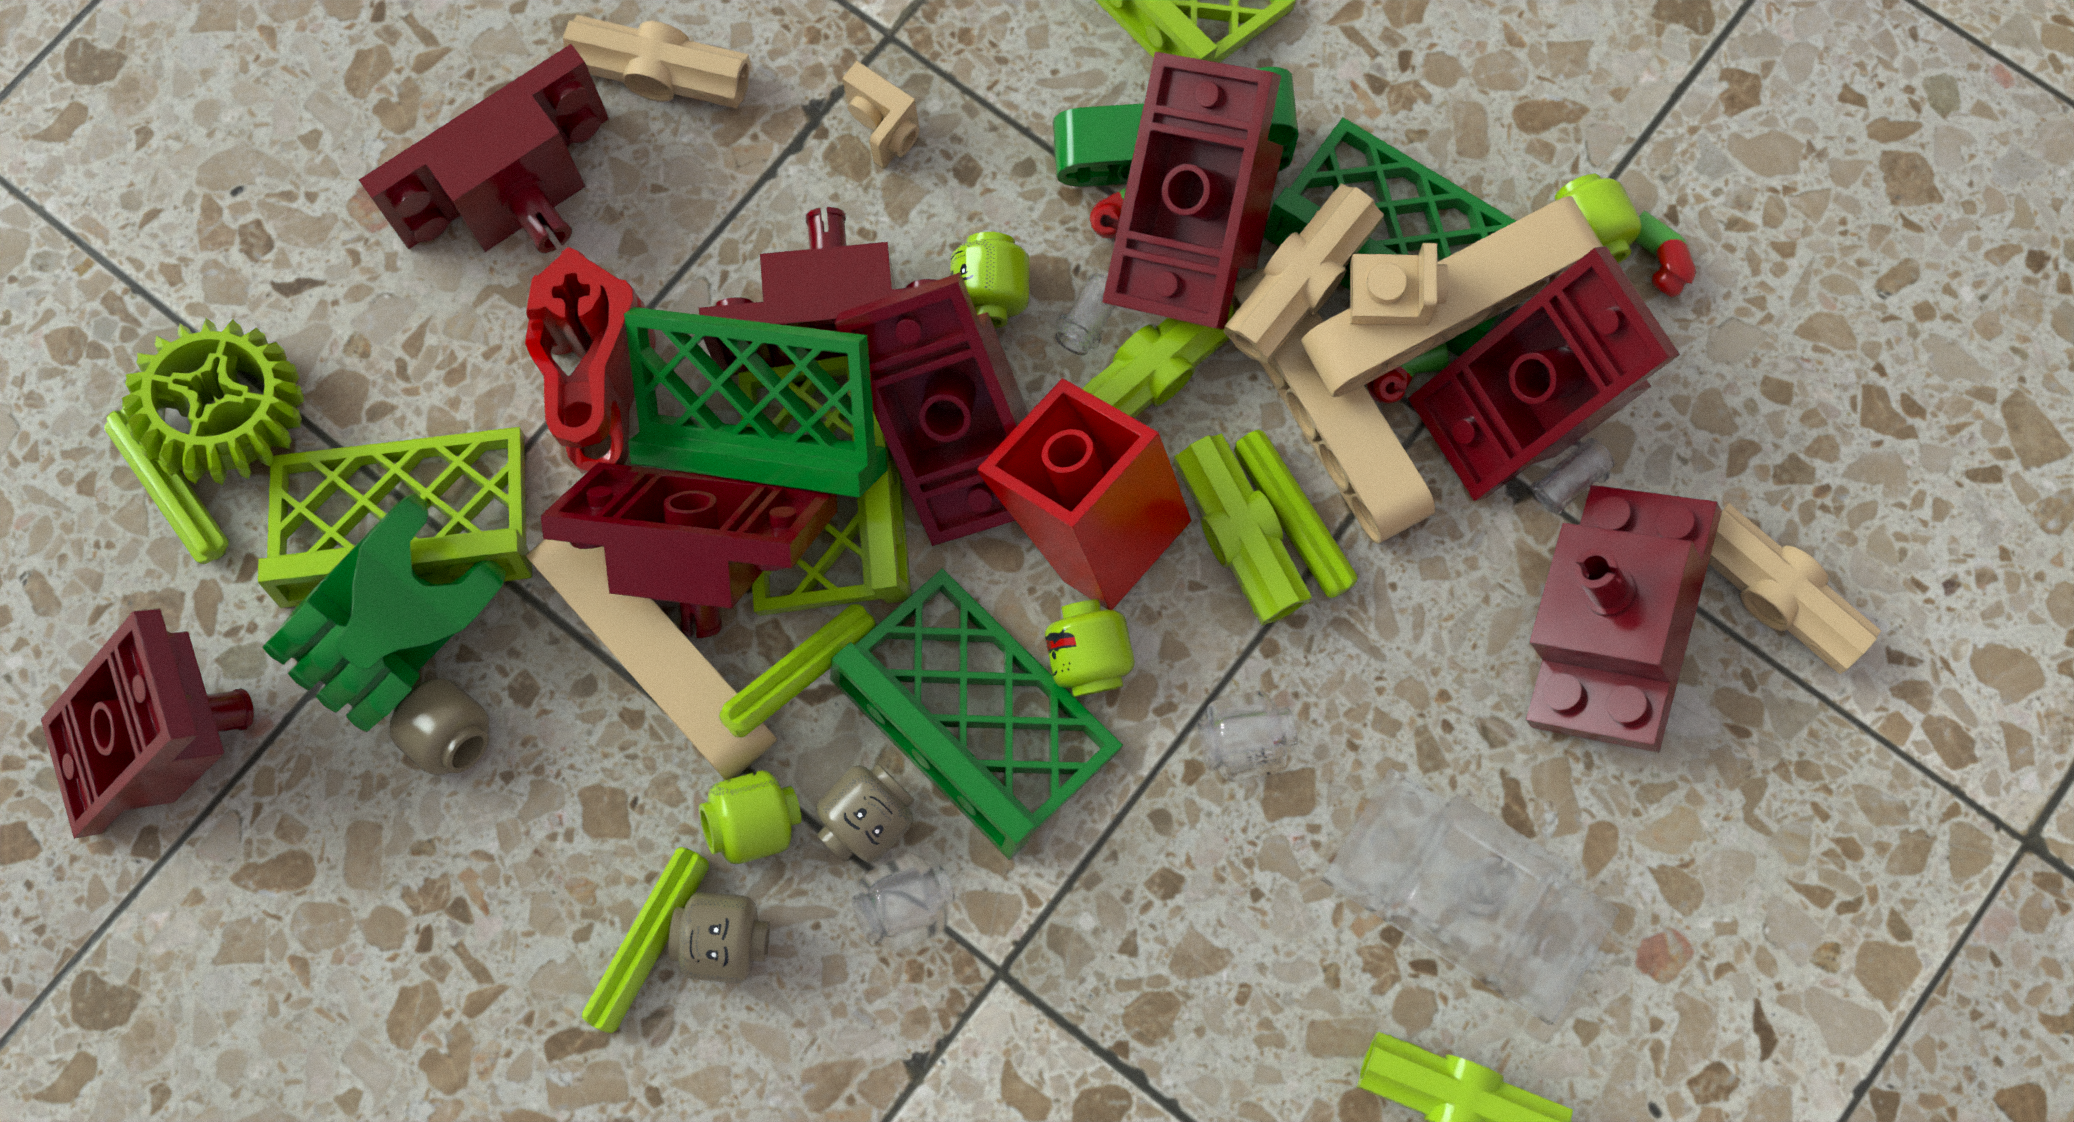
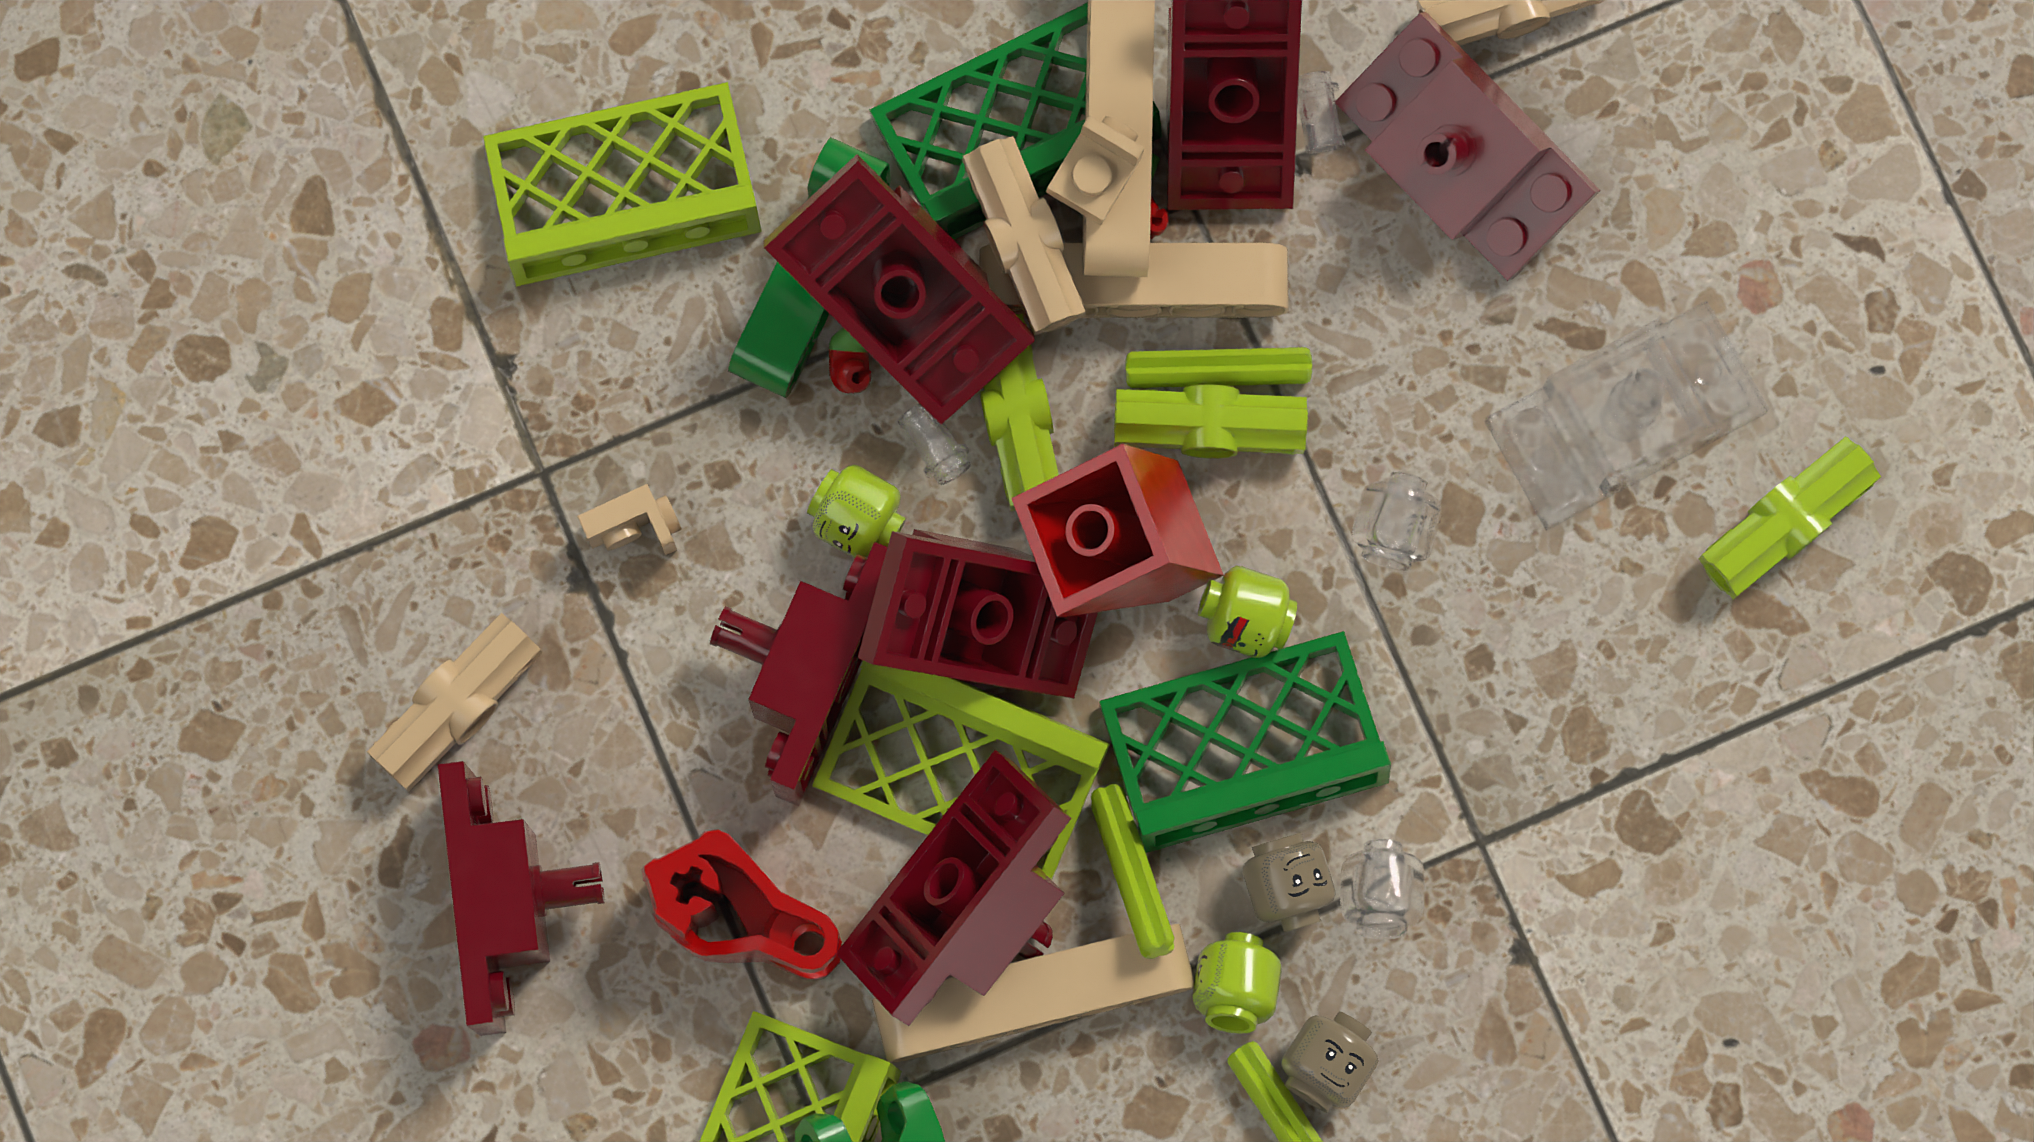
camera: 65 degrees left, 5 degrees up
(759, 451) = (910, 803): green fence -> none

